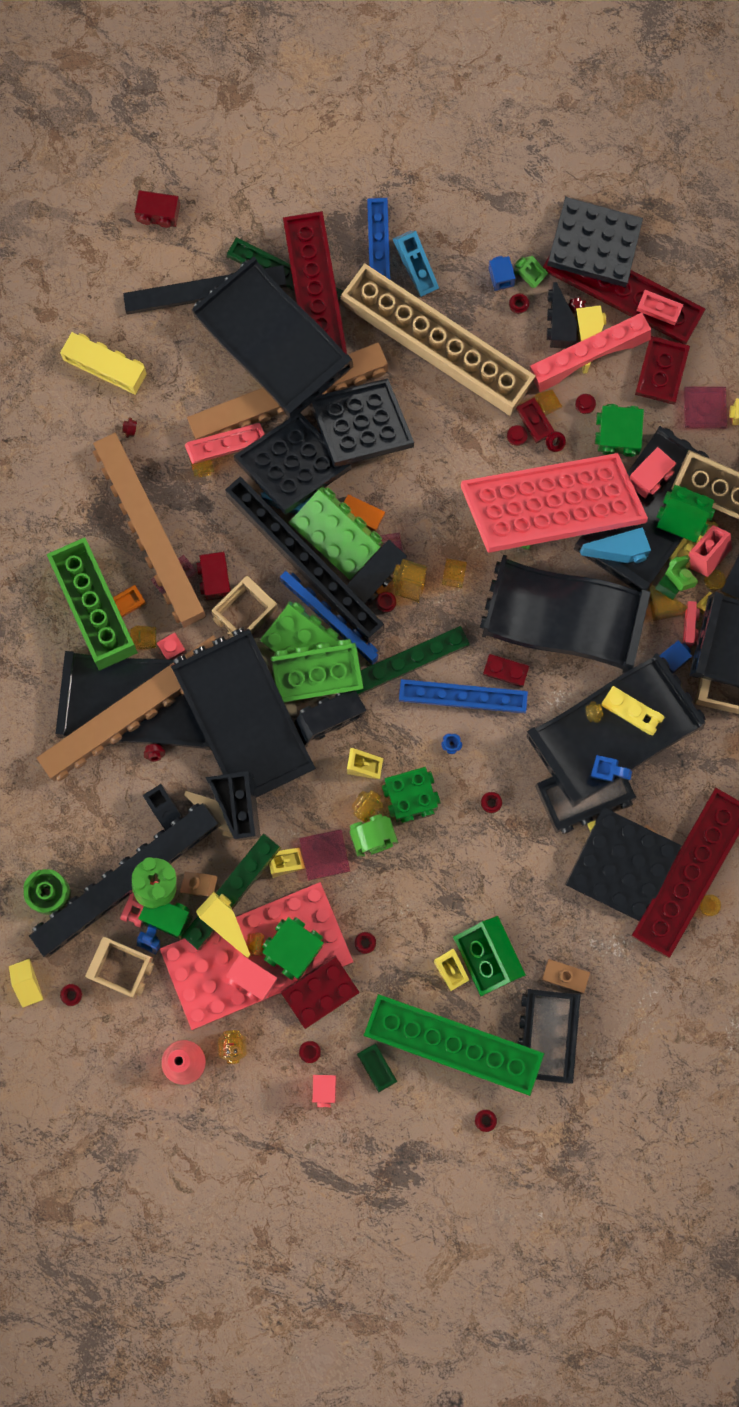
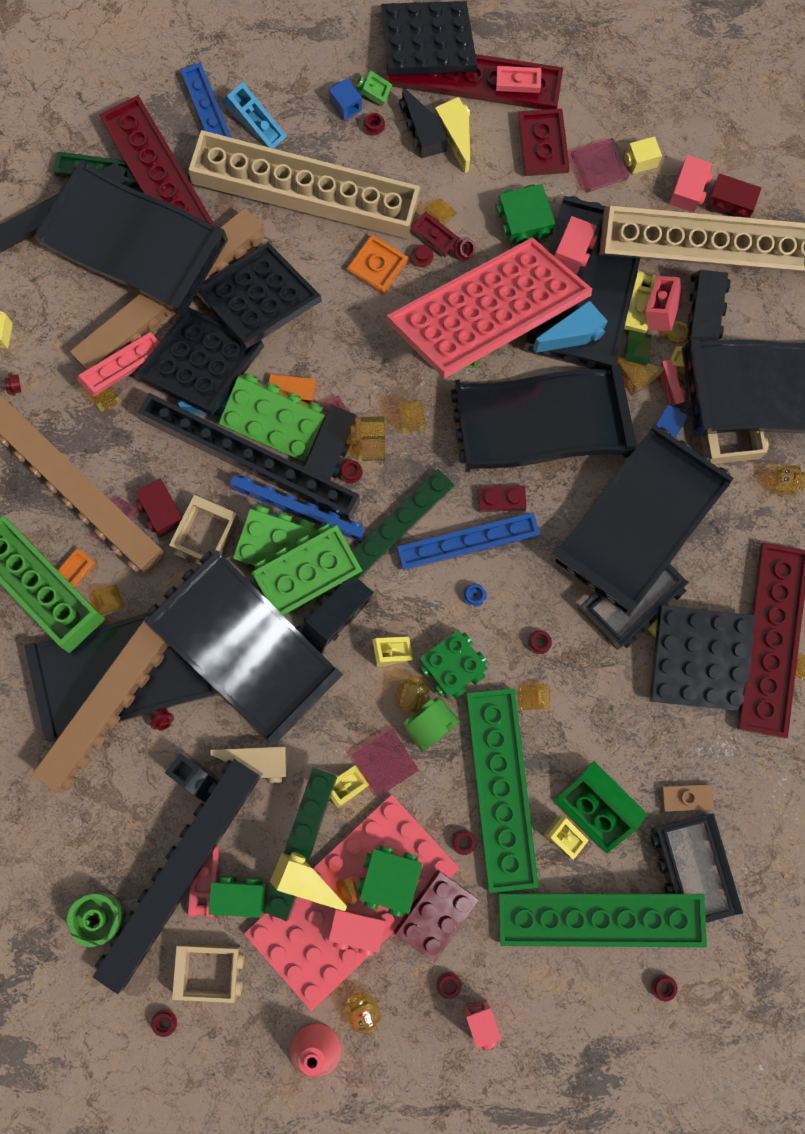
camera: 25 degrees left, 0 degrees up
(25, 983) = (107, 1029): light yellow slope -> none
(149, 871) = (203, 856): bright green brick -> none
(149, 940) = (229, 930): blue plate -> none
(171, 647) = (140, 599): coral plate -> none
(198, 884) = (261, 847): medium nougat plate -> none
(238, 803) = (272, 744): black wedge -> none
(377, 1067) = (527, 974): dark green tile -> none
(412, 912) = (502, 791): none -> green plate
(470, 847) = (535, 697): none -> clear yellow slope
(475, 429) = (377, 264): none -> orange tile
(576, 303) = (432, 103): dark red plate -> none
(585, 403) = (479, 201): dark red plate -> none
(594, 712) = (614, 508): clear yellow plate -> none
(607, 769) = (652, 564): blue plate -> none
(616, 338) = (490, 120): coral arch -> none
(632, 710) = (654, 493): light yellow plate -> none
(680, 575) = (644, 338): bright green bracket -> none
(685, 513) = (627, 271): green brick -> none

